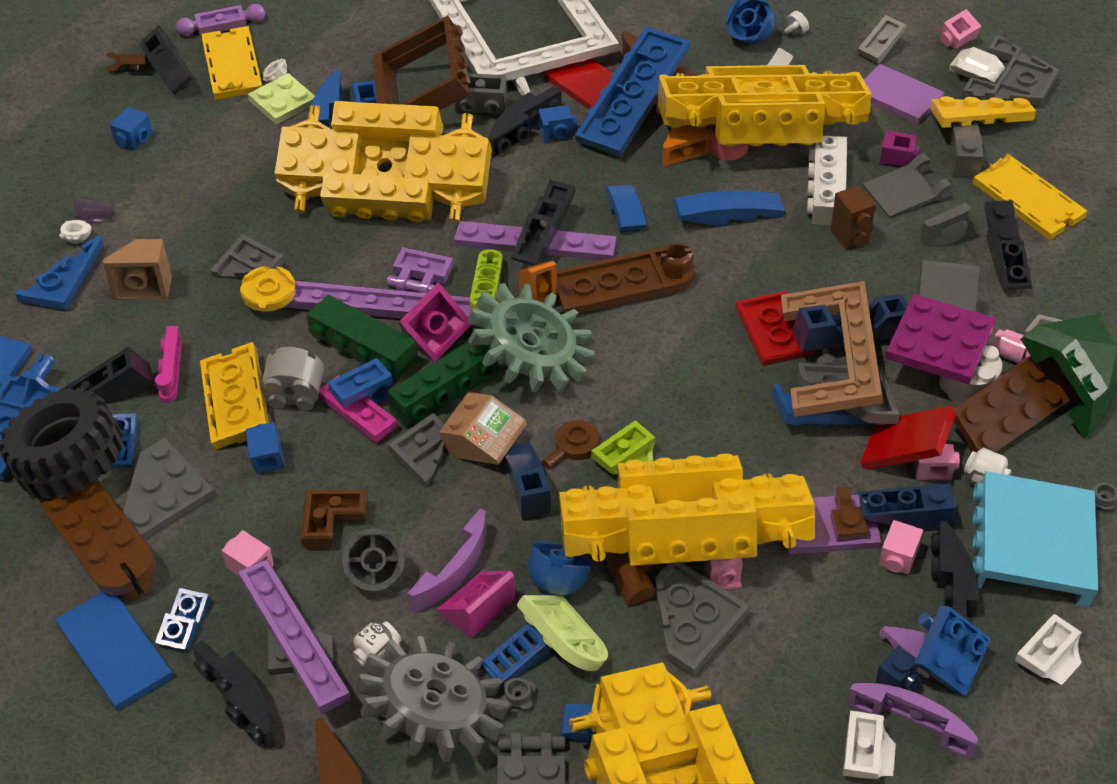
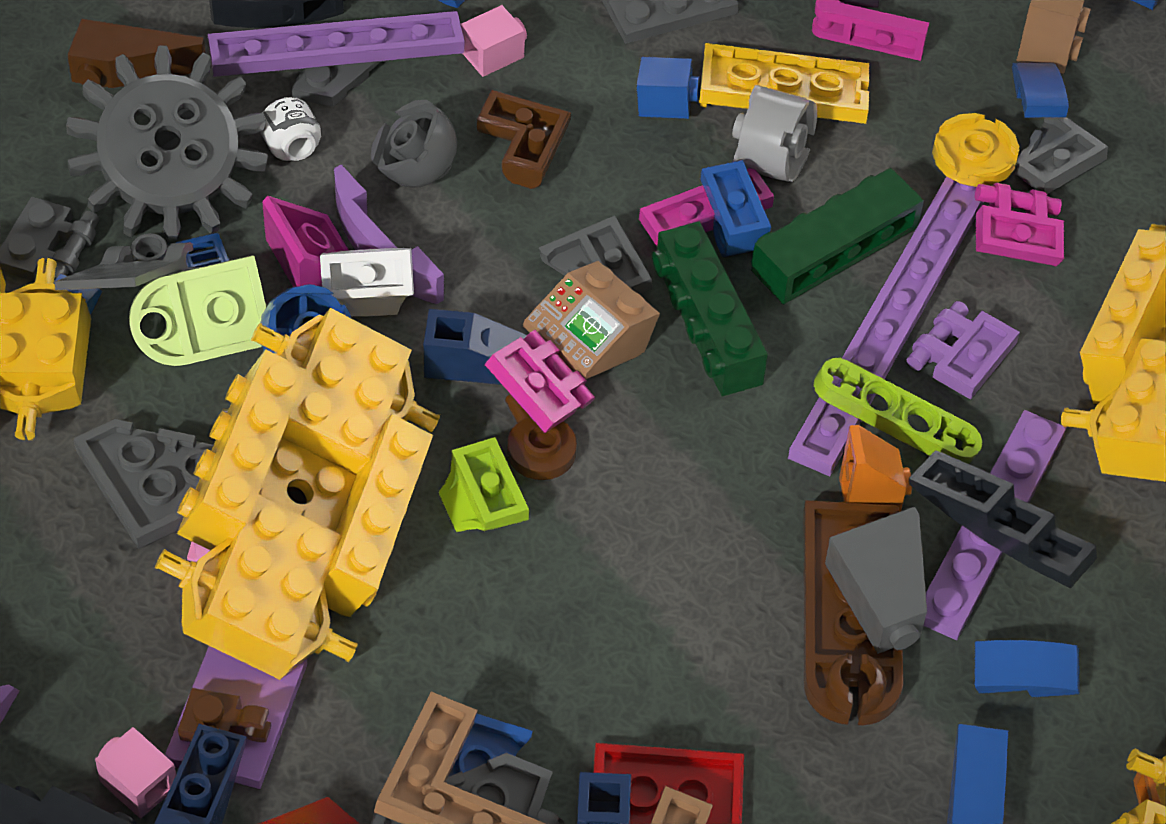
camera: 105 degrees right, 5 degrees up
(203, 269) = (1040, 89): none -> blue slope
(319, 259) = (1018, 234): none -> dark pink plate
(435, 323) = (825, 316): dark pink slope -> none
(497, 543) = (369, 280): none -> white slope
(543, 436) = (540, 380): none -> dark pink plate
(552, 338) = (744, 375): sand green gear -> none
(568, 669) = (115, 273): none -> dark grey flag
(609, 256) = (883, 578): none -> dark grey slope

